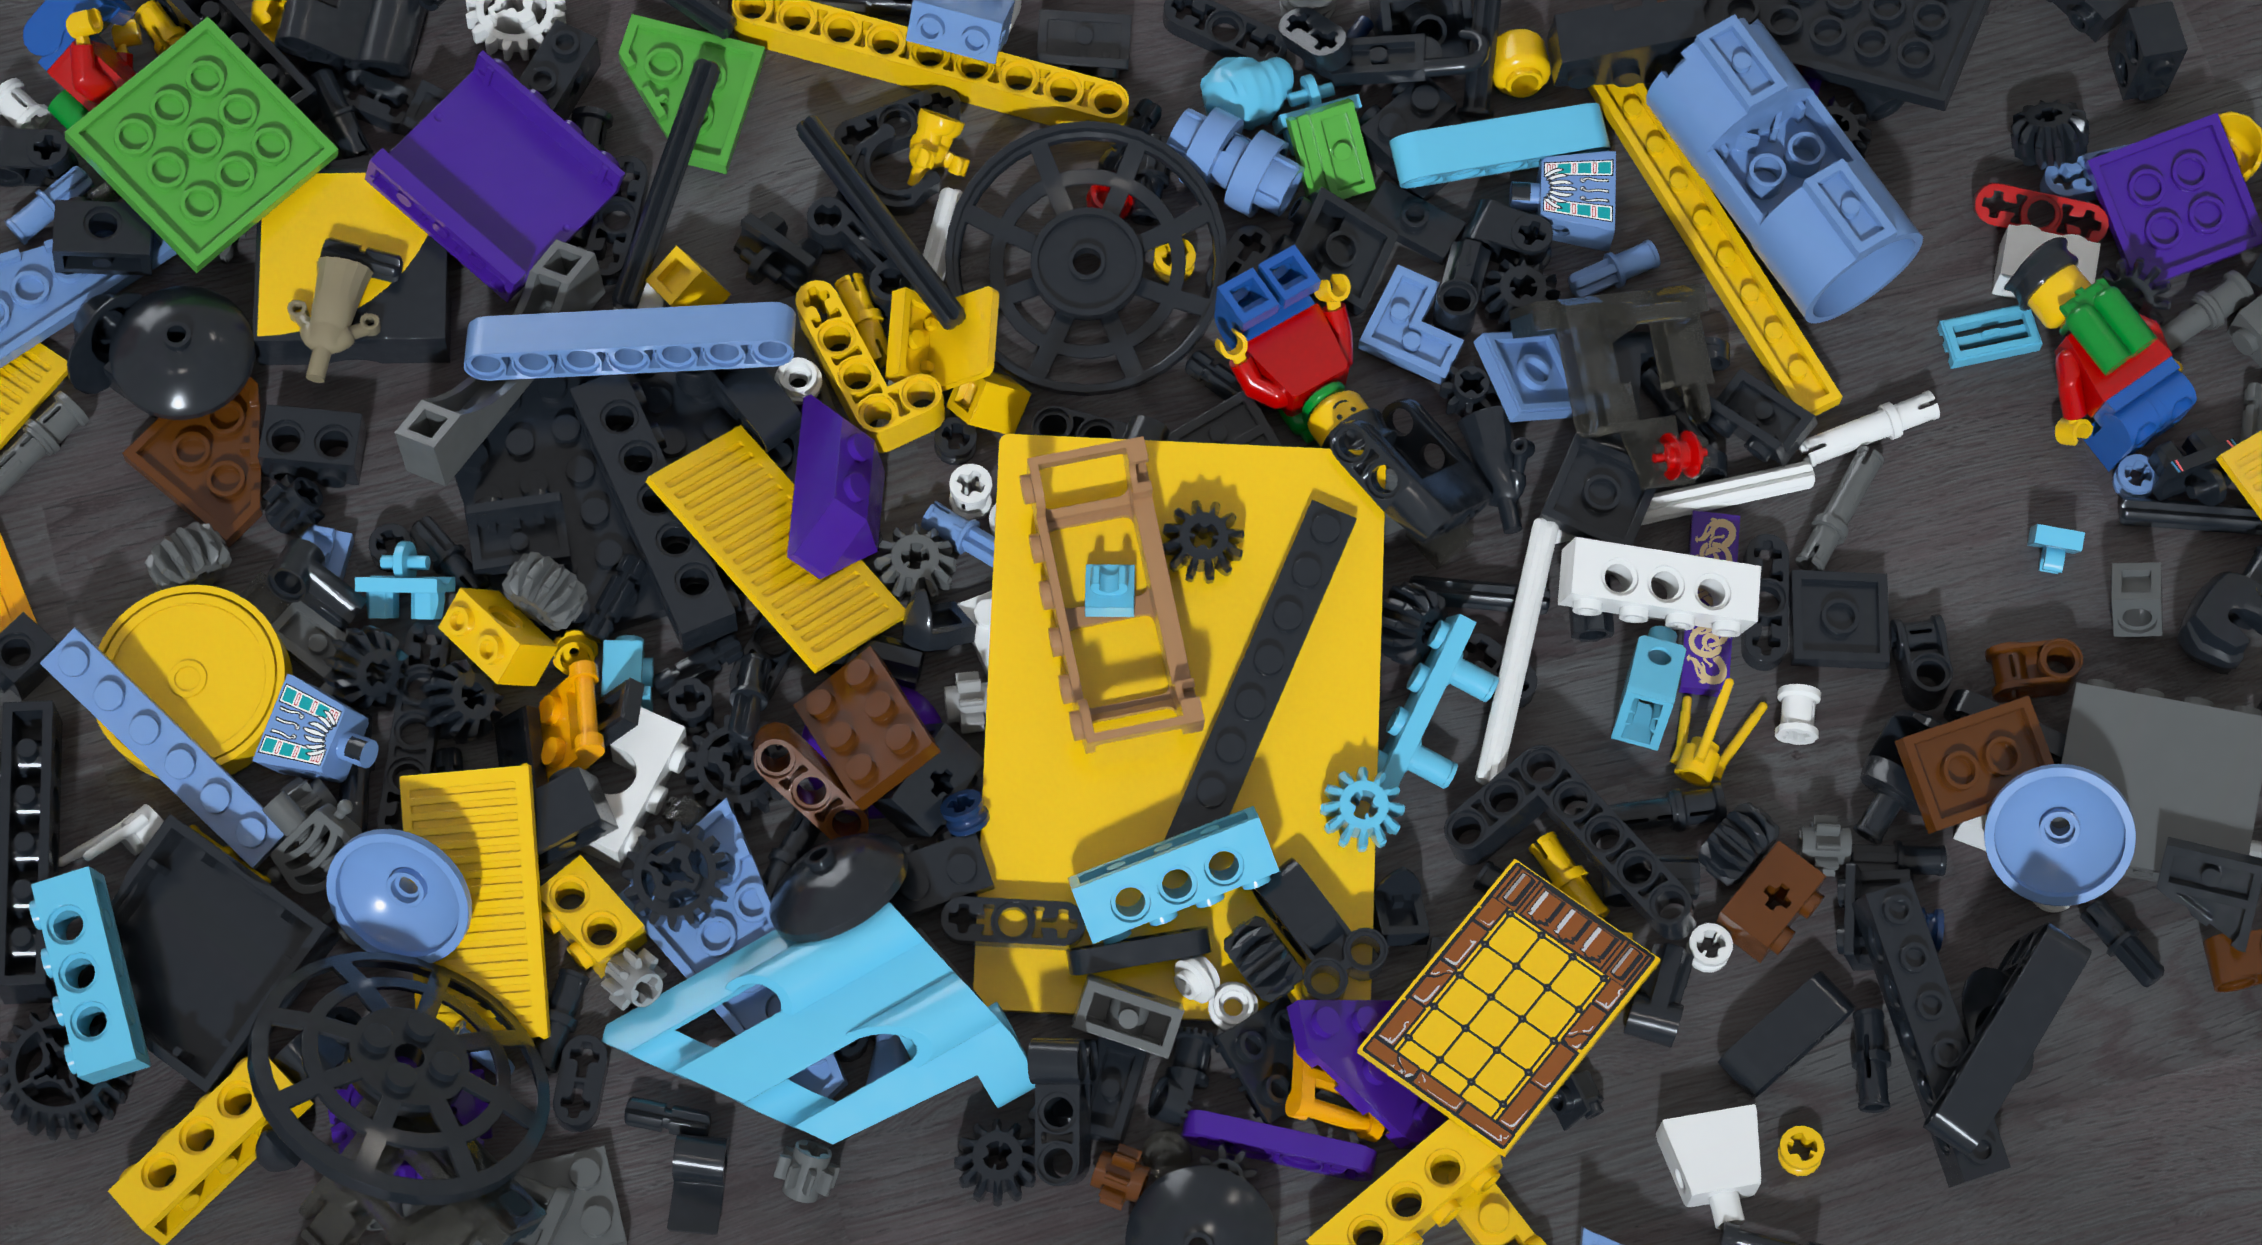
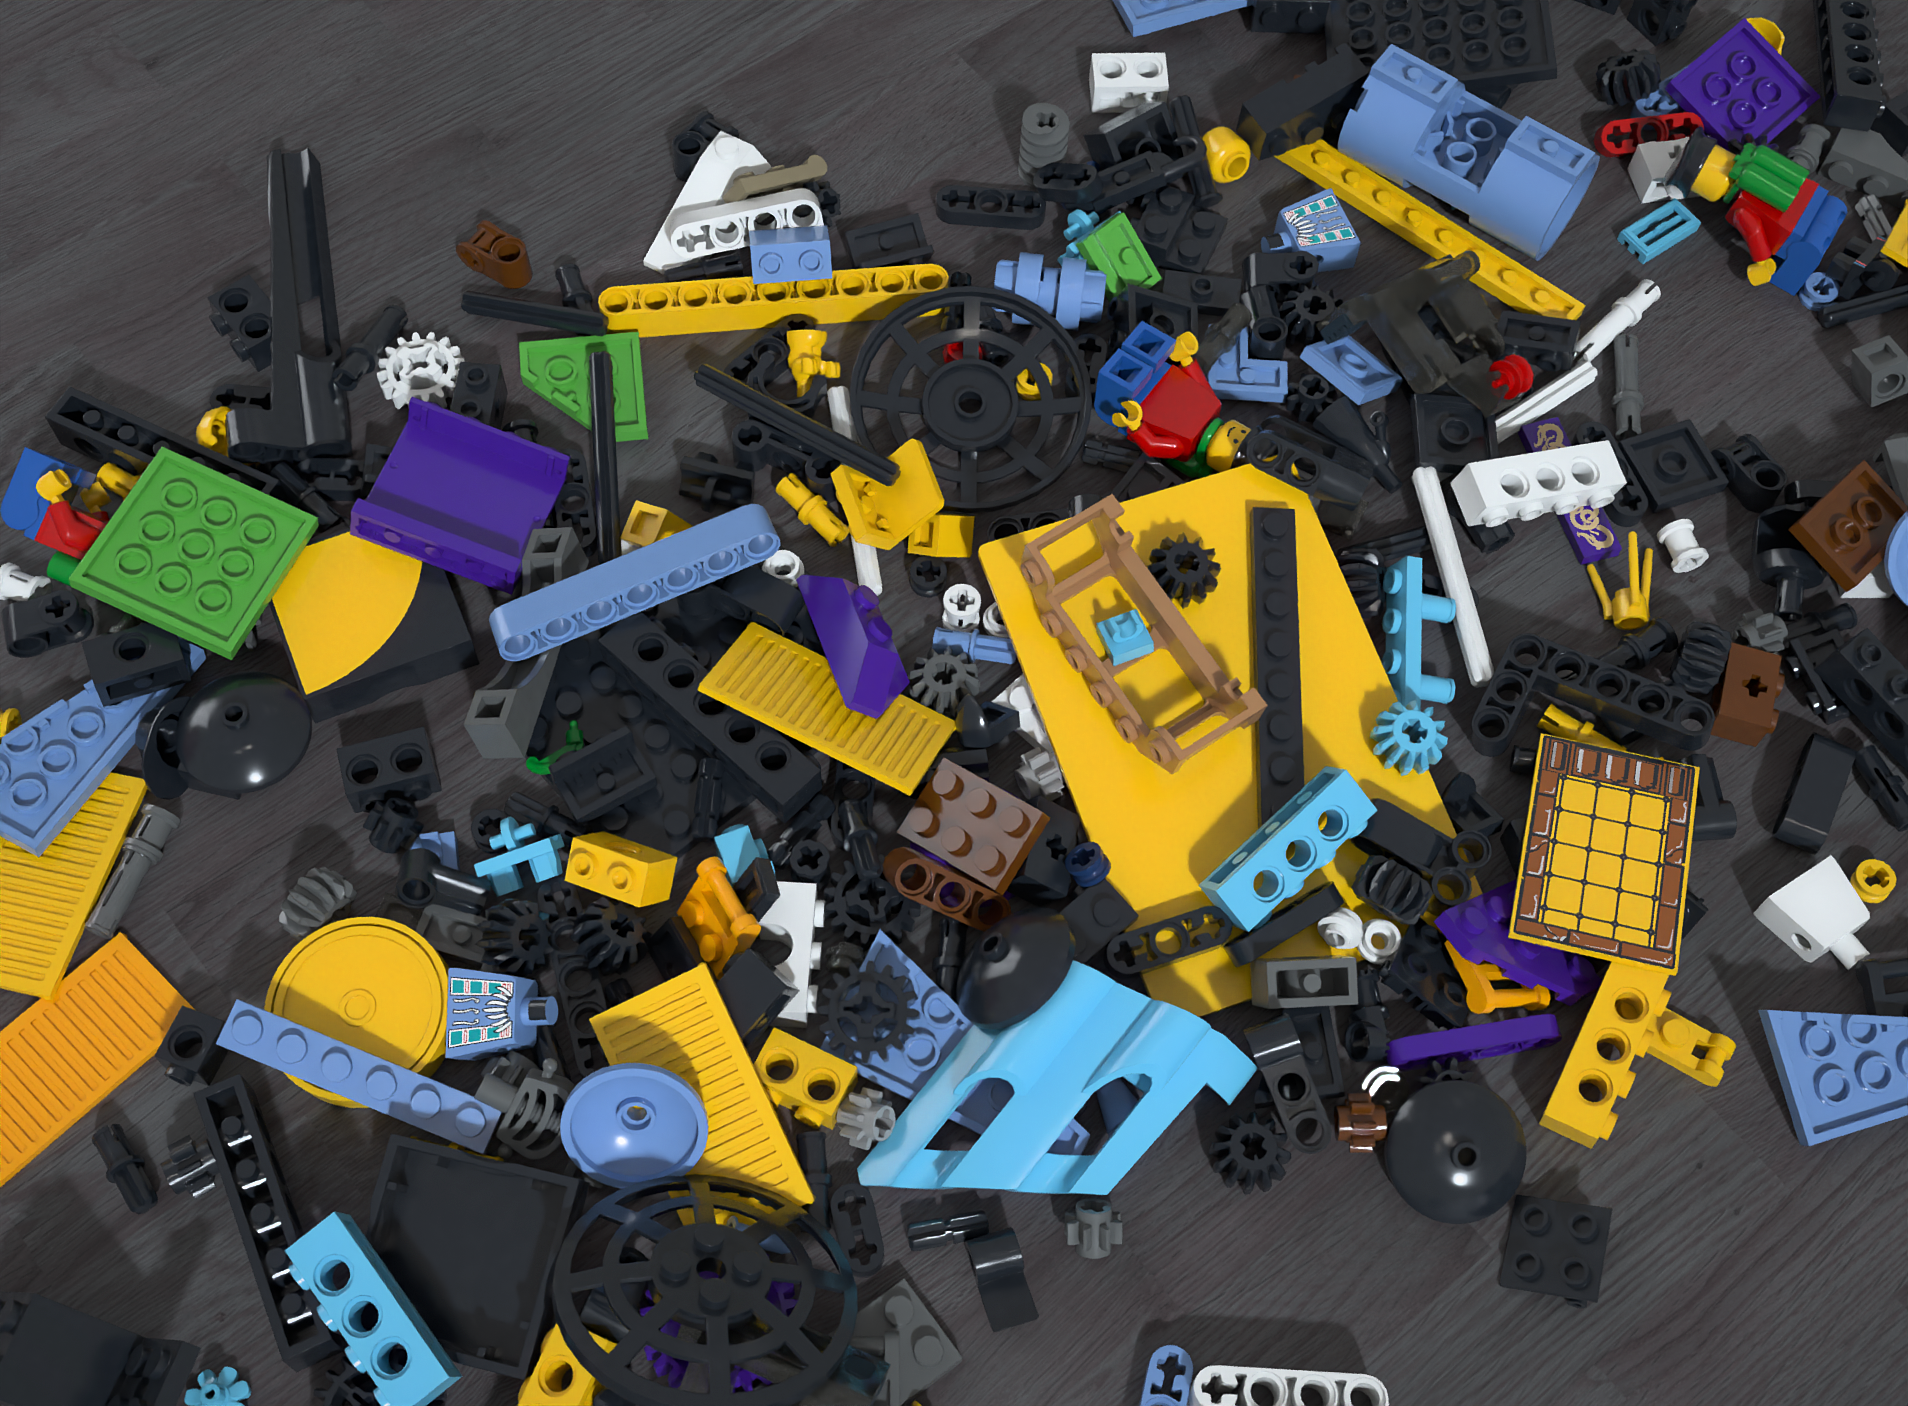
camera: 20 degrees left, 5 degrees down
(41, 209) = (73, 660): medium blue axle -> none
(133, 831) = (360, 1164): white plant -> none
(208, 463) = (301, 818): reddish brown plate -> none
(334, 305) = (364, 635): dark tan piece -> none
(383, 264) = (363, 601): black piece -> none
(506, 489) = (574, 741): none -> green piece
(545, 591) = (648, 813): dark grey gear -> none
(573, 639) = (685, 847): yellow plate -> none
(856, 364) = (828, 540): yellow beam -> none
(1248, 88) = (1031, 234): medium azure hair -> none
(1396, 287) = (1222, 336): none -> clear smoke pin
(1497, 145) = (1239, 213): medium azure beam -> none
(1614, 269) = (1370, 273): medium blue axle -> none
(1652, 678) = (1568, 566): medium azure torso -> none
(1720, 935) = (1726, 742): white bush -> none
(2023, 668) = (1833, 447): reddish brown piece -> none
(2055, 543) = (1794, 357): medium azure tile -> none

